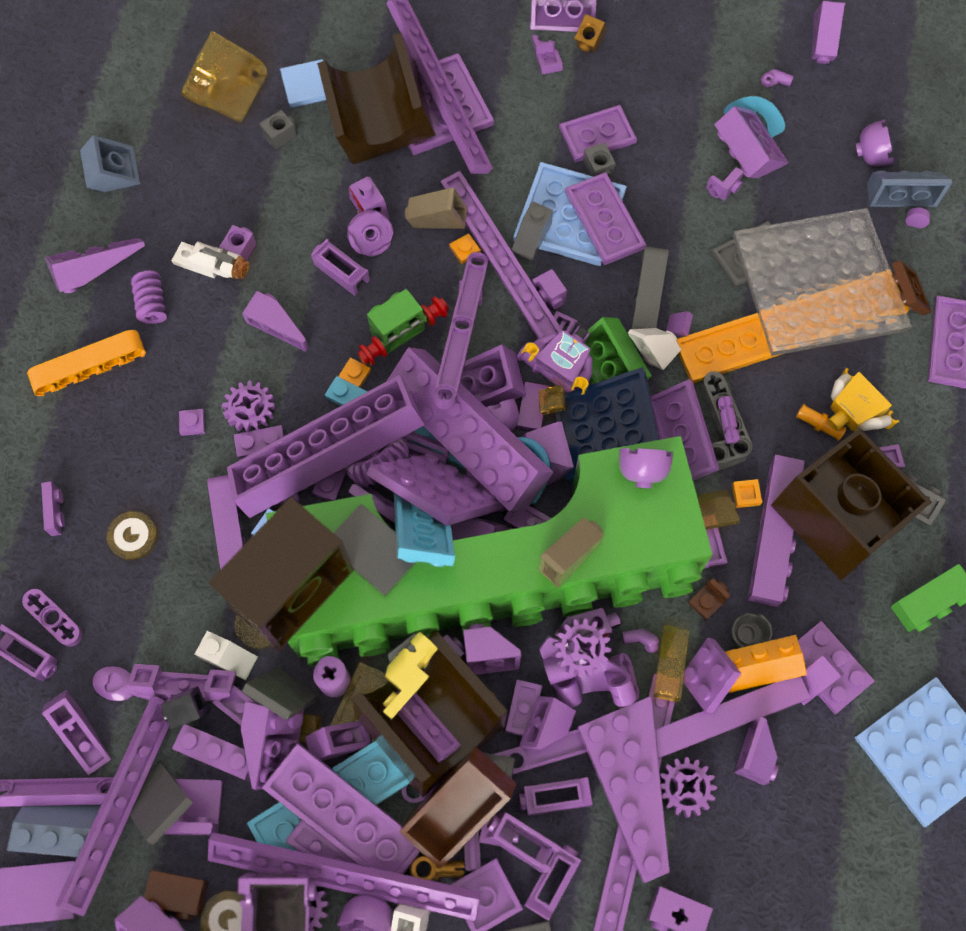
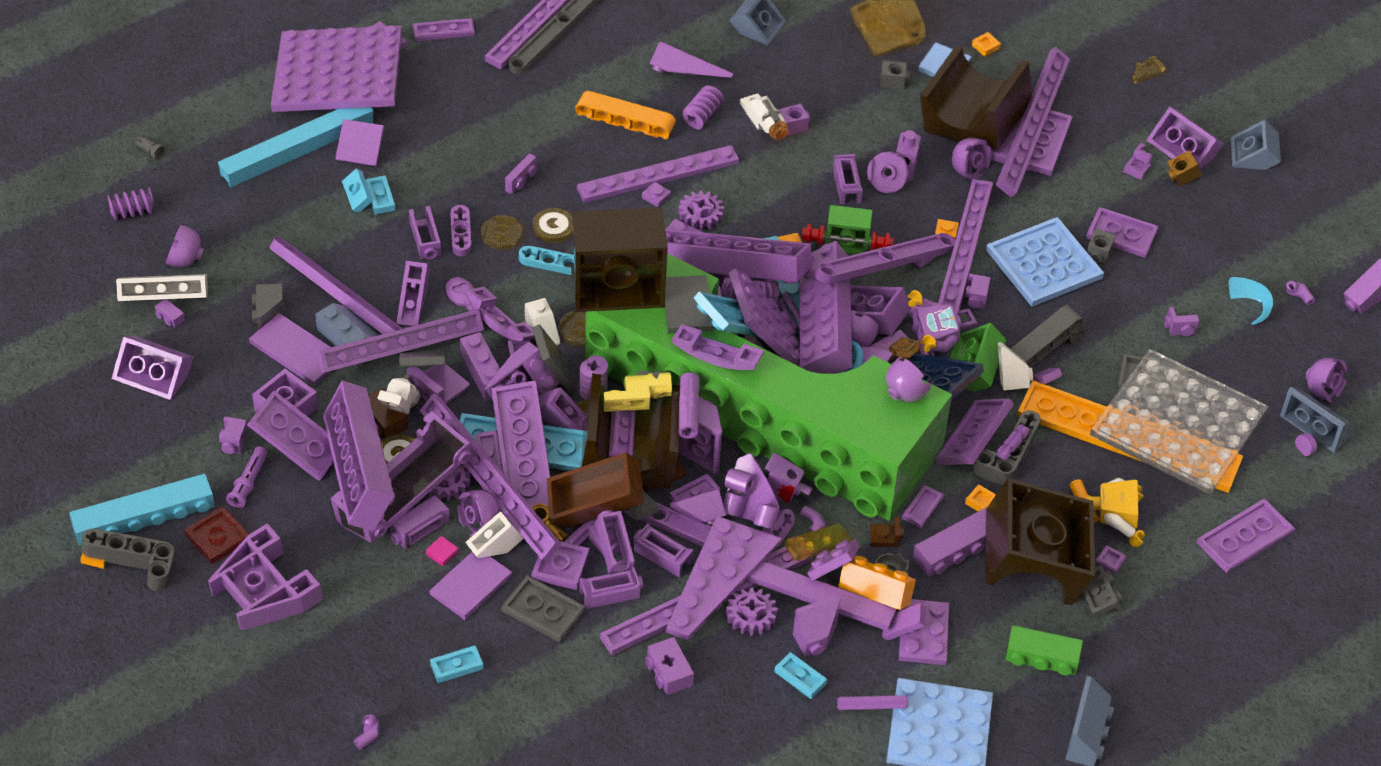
camera: 40 degrees right, 20 degrees down
(90, 592) = (497, 237): none -> clear yellow tile
(171, 401) = (657, 173): none -> medium lavender plate
(173, 567) = (559, 259): none -> medium azure beam
(182, 875) = (400, 395): none -> white plate
(184, 707) = (490, 324): black brick -> none
(269, 316) = (768, 171): medium lavender slope -> none
(322, 37) = (986, 44): none -> light orange plate
(418, 159) = (969, 154): none -> medium lavender cylinder
(437, 210) = (949, 190): dark tan slope -> none
(451, 579) = (714, 352): none -> medium lavender slope
(471, 653) = (689, 405): none -> medium lavender axle
(532, 230) = (1002, 246): dark grey slope -> none
(570, 551) = (805, 388): dark tan slope -> none
(572, 654) = (754, 467): medium lavender gear -> none
(605, 218) = (1064, 277): medium lavender tile -> none
(718, 509) = (945, 490): clear yellow piece -> none
(750, 142) = (1230, 312): medium lavender slope -> none
(784, 812) = (800, 675): none -> medium azure plate
(867, 784) = (873, 702): none -> medium lavender axle
(912, 290) = (1244, 473): reddish brown plate -> none

